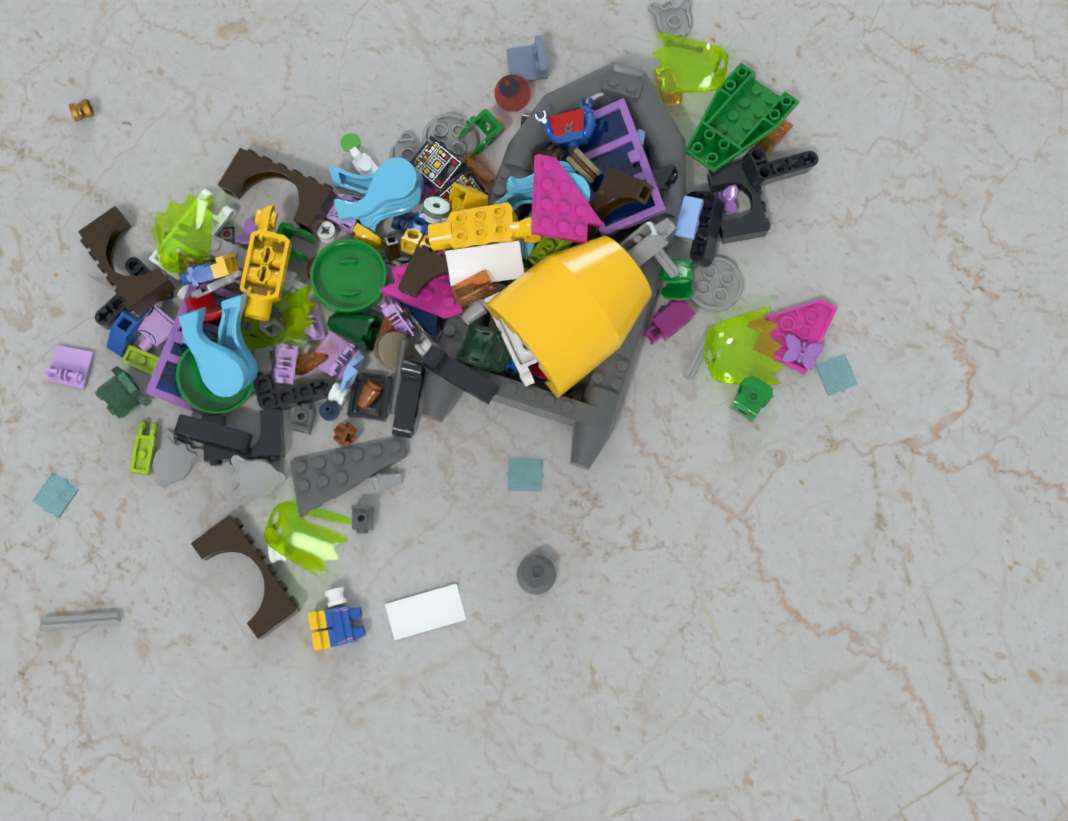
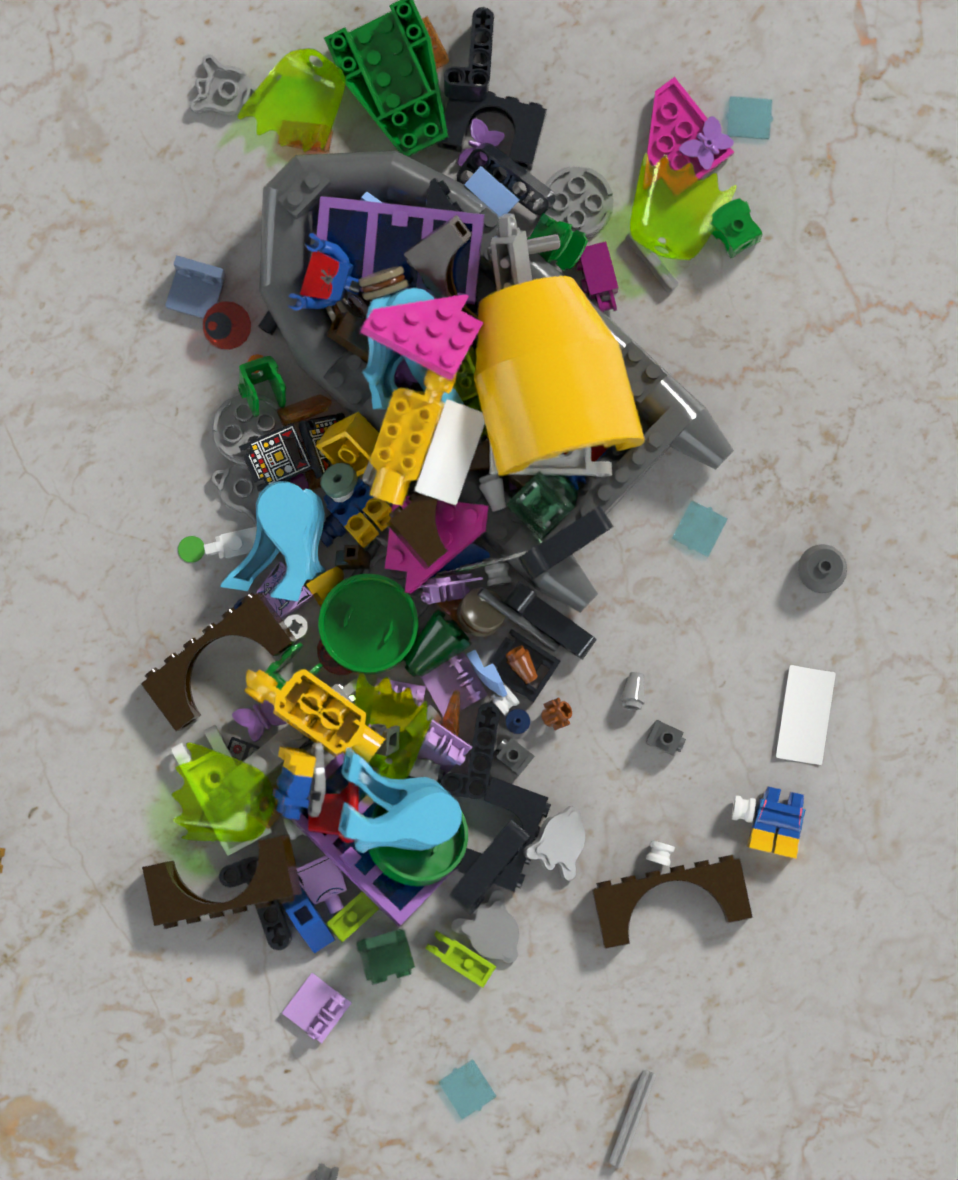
camera: 65 degrees left, 5 degrees up
(302, 540) = (662, 815): clear neon green piece -> none
(336, 472) = (596, 751): dark grey wing -> none
(473, 288) = (471, 480): clear orange slope -> none

